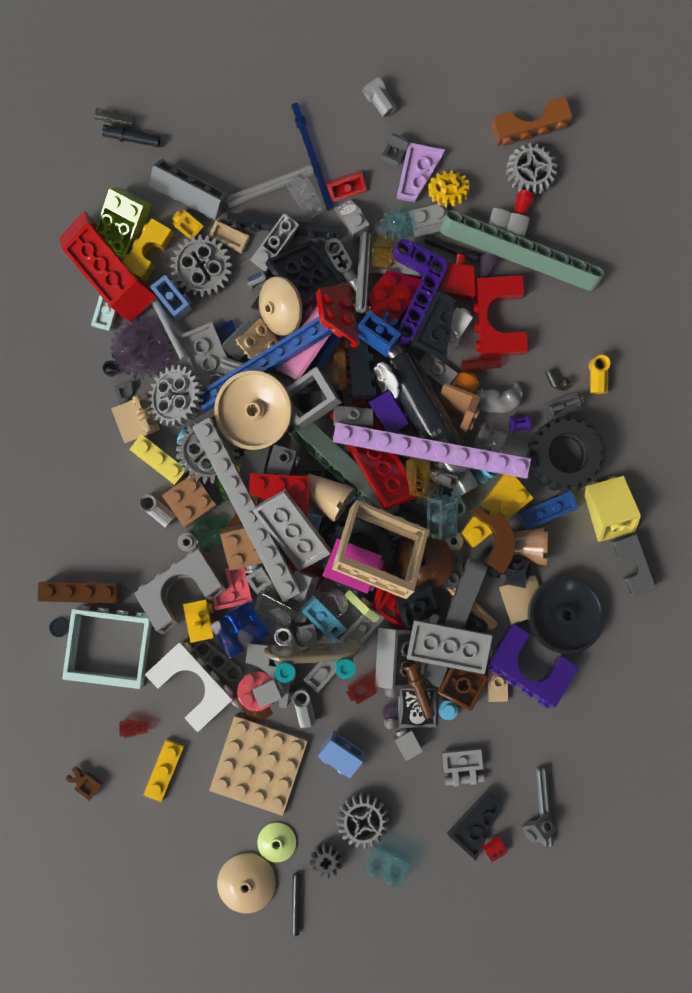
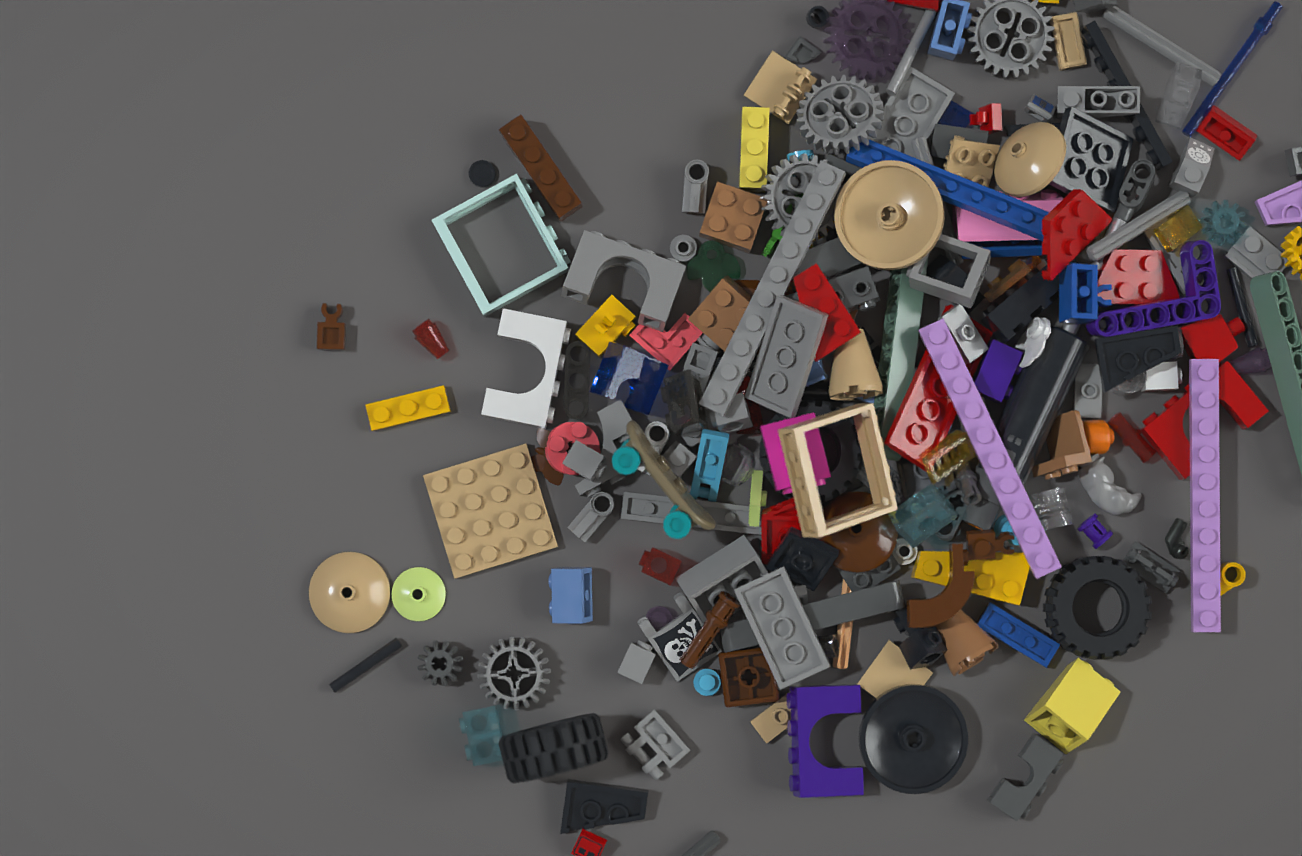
camera: 55 degrees right, 0 degrees up
(239, 313) = (988, 118): none -> red tile
(424, 835) = (553, 748): none -> black tyre
(484, 493) = (983, 544): none -> reddish brown plate
(545, 346) = (1204, 495): none -> lavender plate

